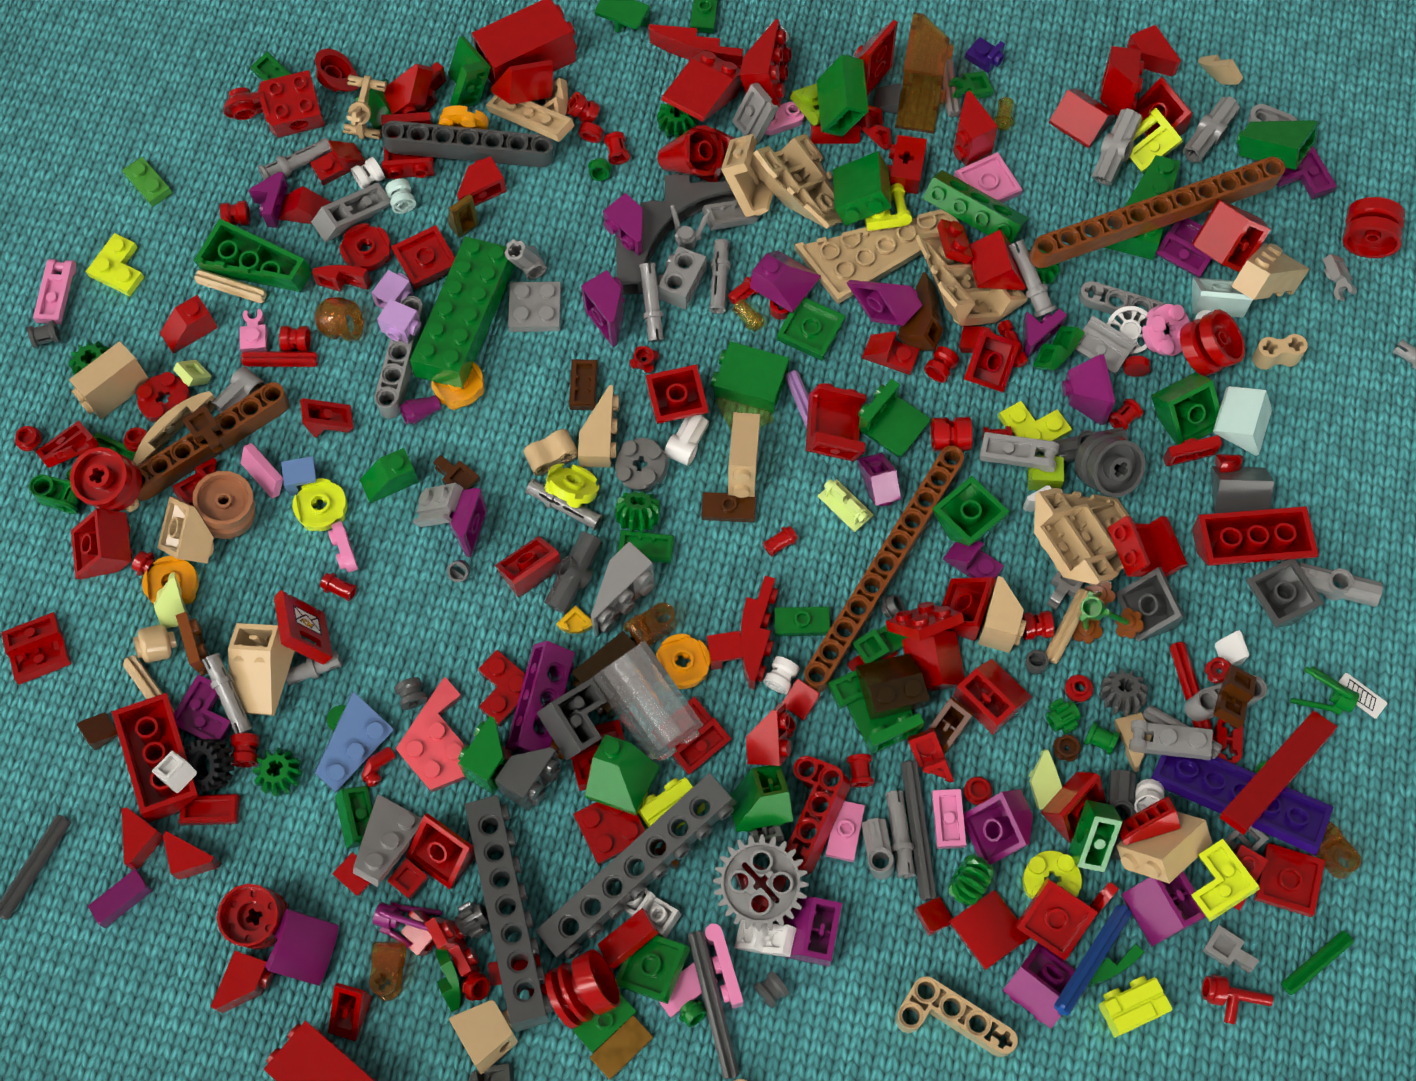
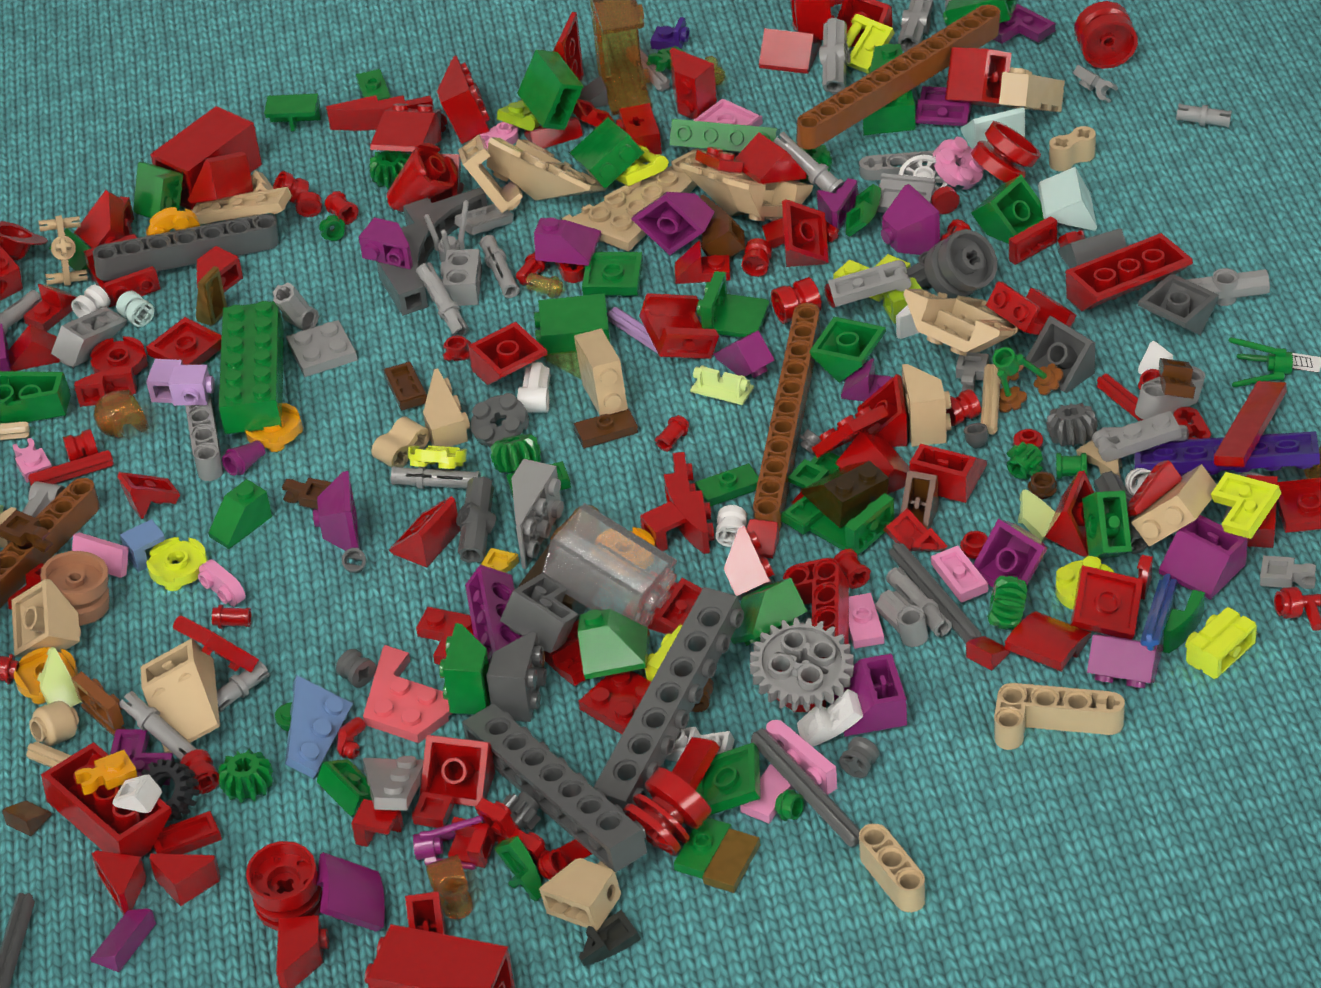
camera: 20 degrees left, 25 degrees down
(163, 737) = (108, 771): none -> light orange plate
(437, 504) = (305, 514): light grey plate -> none
(604, 304) = (394, 315): magenta slope -> none
(755, 112) = (466, 126): light grey plate -> none

